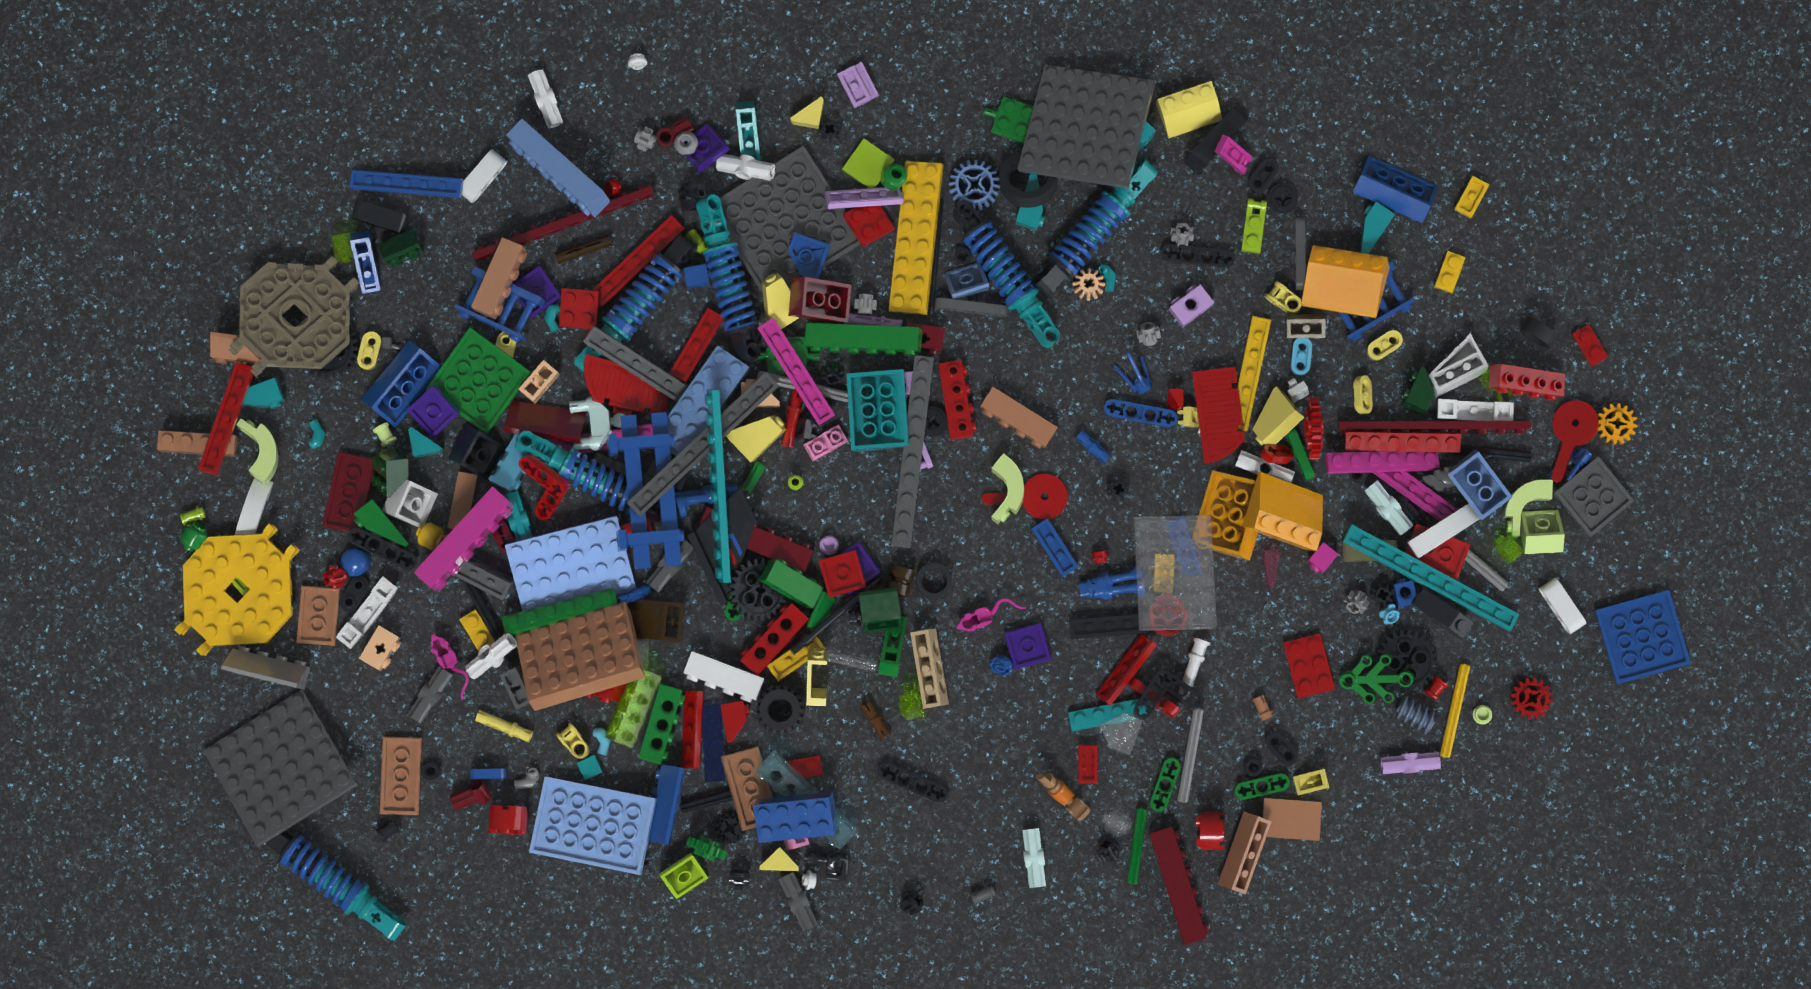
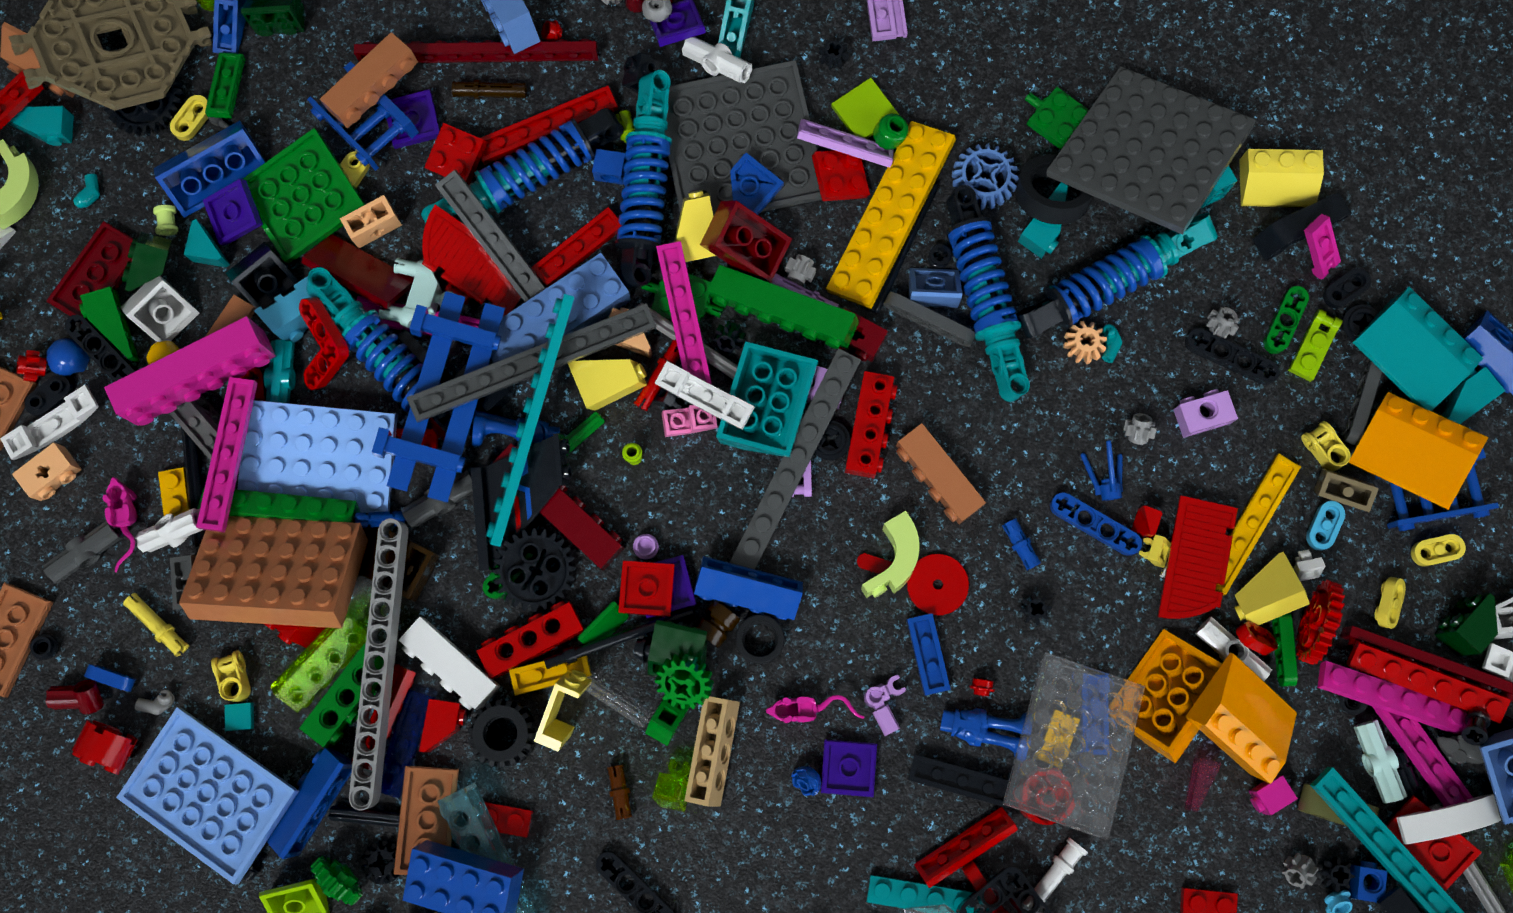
camera: 25 degrees right, 5 degrees down
(385, 317) = (225, 85): none -> green tile
(512, 588) = (227, 455): none -> dark pink plate
(550, 315) = (422, 147): teal arm -> none
(600, 734) = (267, 678): medium azure arm -> none
(685, 699) = (370, 673): none -> light grey beam
(791, 583) = (578, 576): green brick -> none
(810, 115) = (815, 28): light yellow slope -> none
(832, 423) = (704, 395): none -> white slope
(893, 627) = (686, 681): none -> green gear
(913, 547) = (748, 588): none -> blue brick
(1029, 591) = (876, 697): none -> lavender bar
(1223, 200) = (1286, 337): none -> green beam
(1324, 207) = (1417, 349): none -> teal slope
(1442, 465) = (1472, 728): none -> black bush

